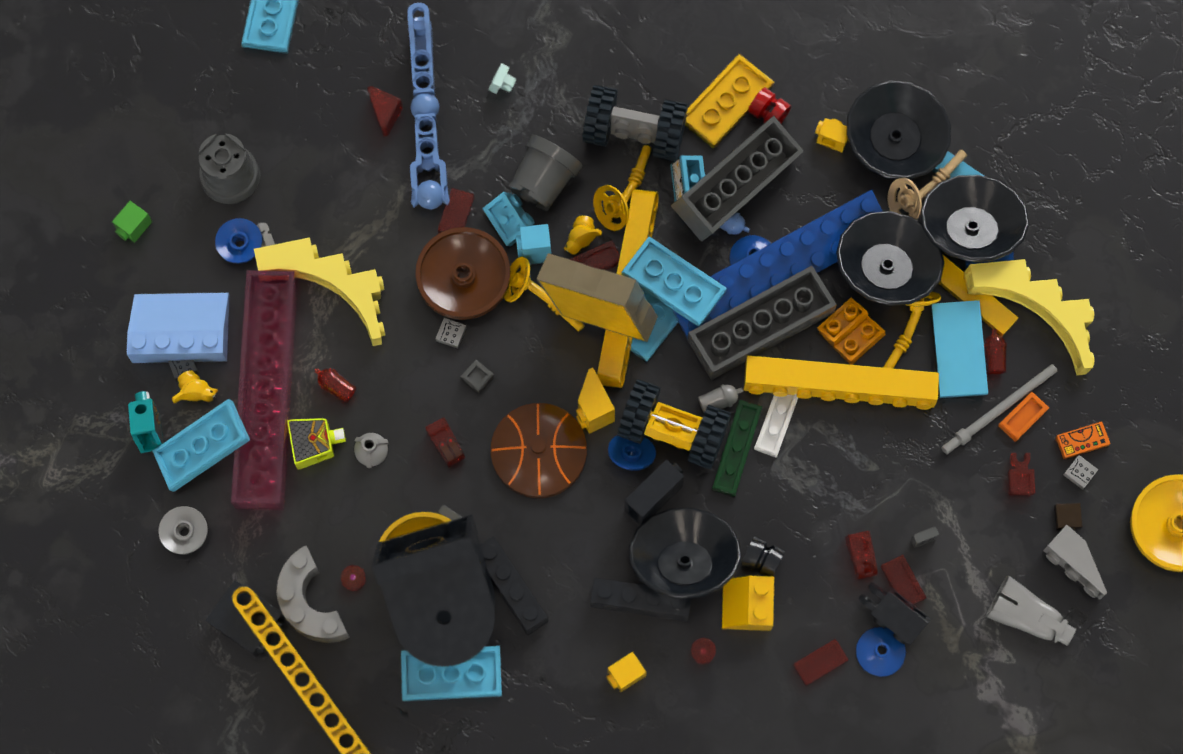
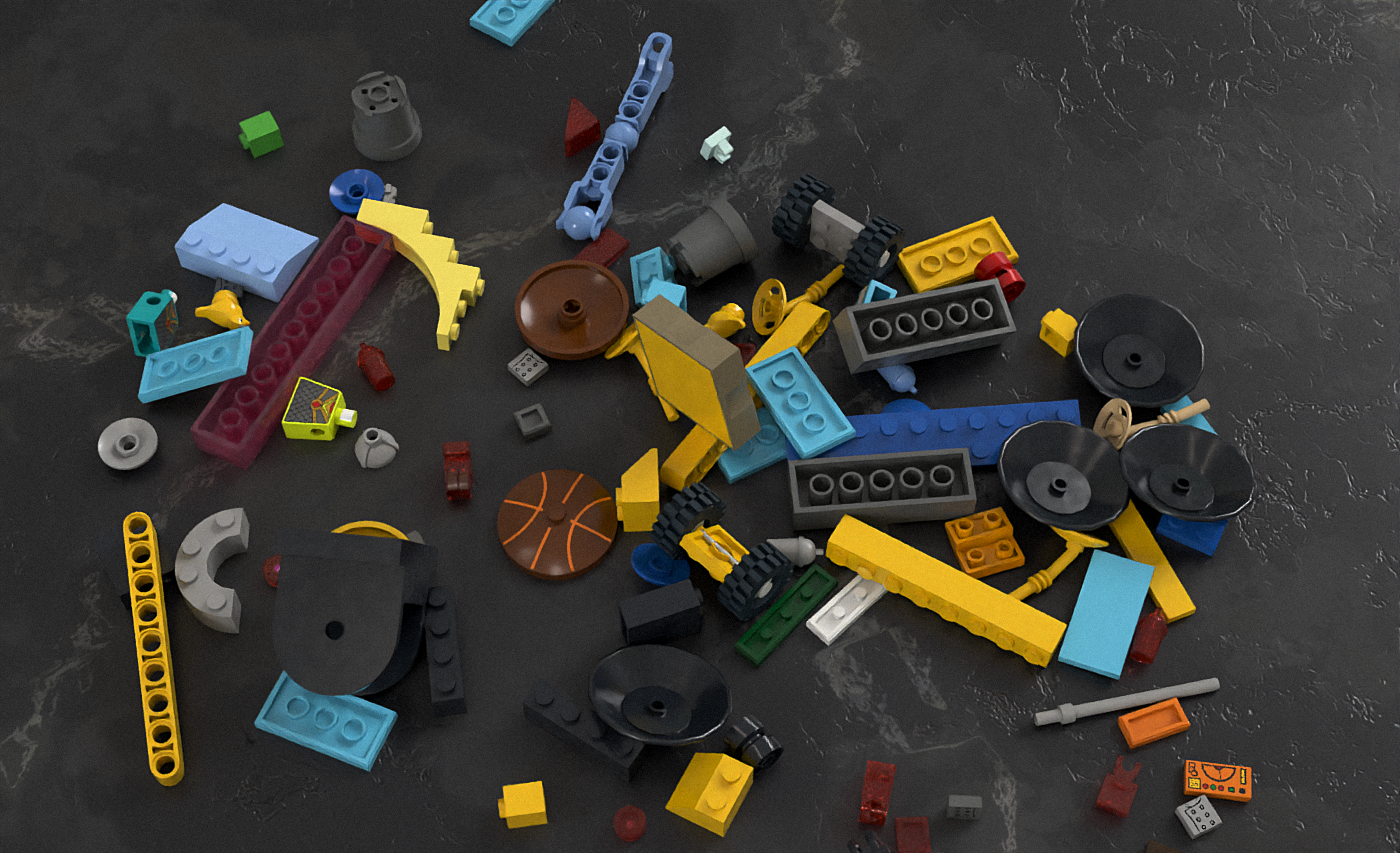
camera: 25 degrees right, 15 degrees down
(1044, 298) = (1236, 595): light yellow arch -> none

